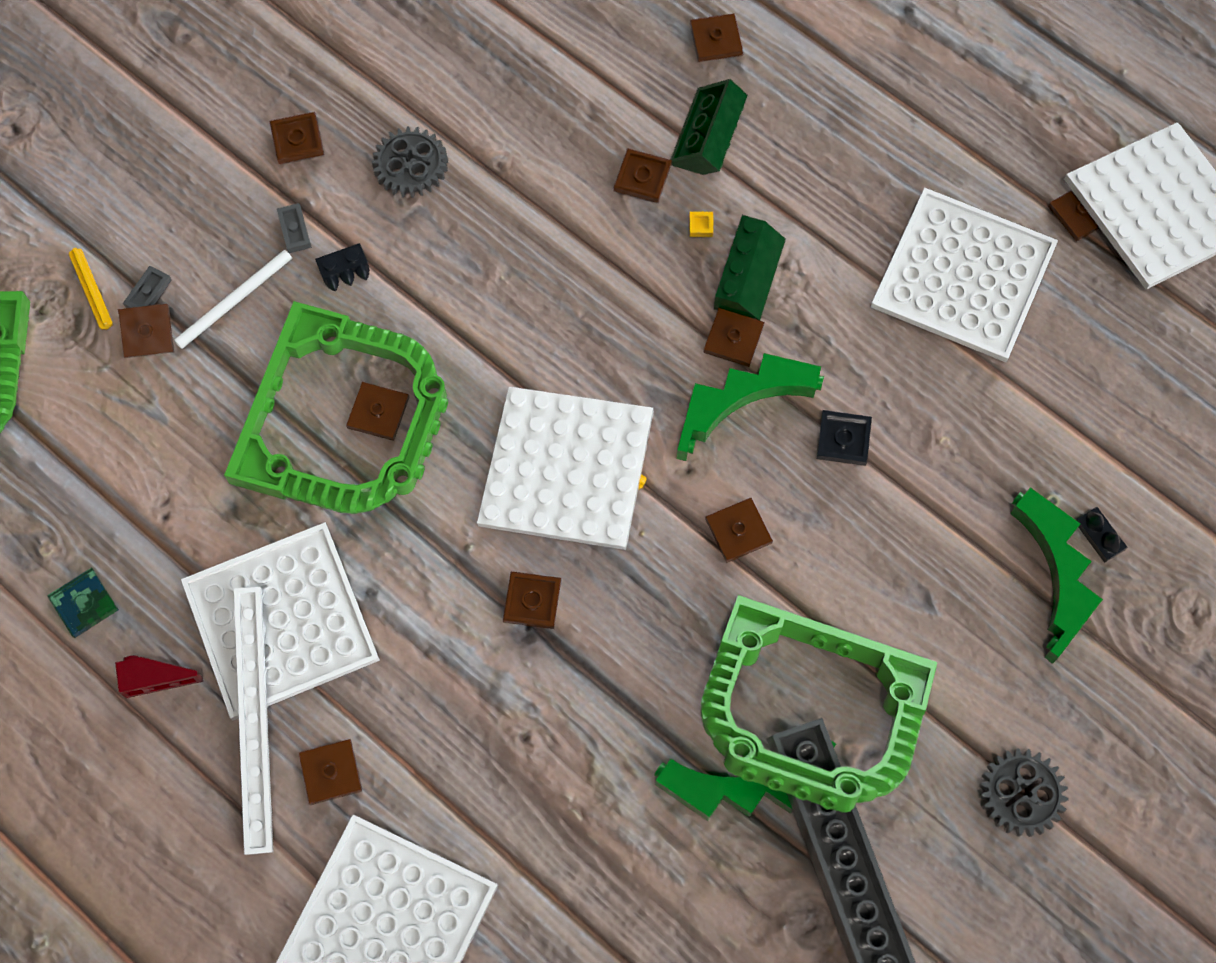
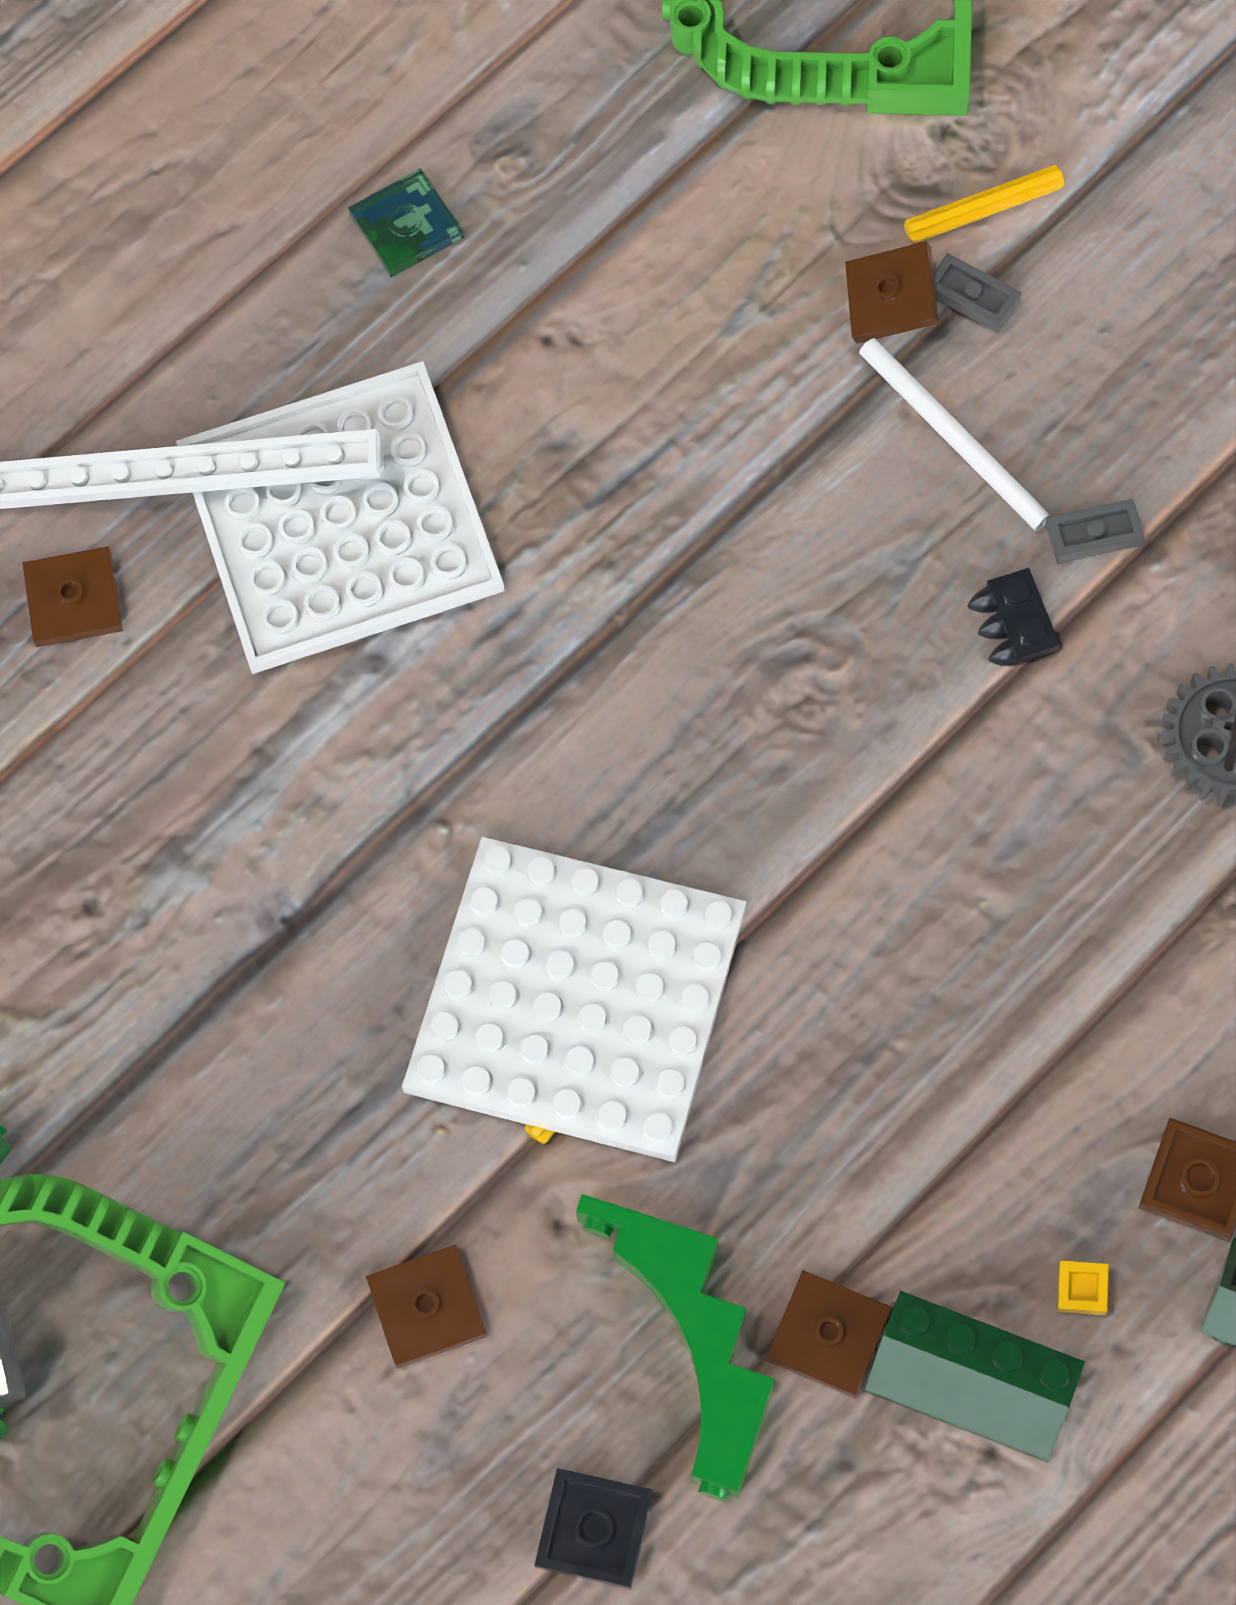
camera: 100 degrees right, 0 degrees up
(144, 676) = (265, 323): dark red slope -> none
(307, 332) = (631, 467): bright green arch -> none
(377, 411) = (715, 675): reddish brown plate -> none
(532, 600) = (327, 925): reddish brown plate -> none

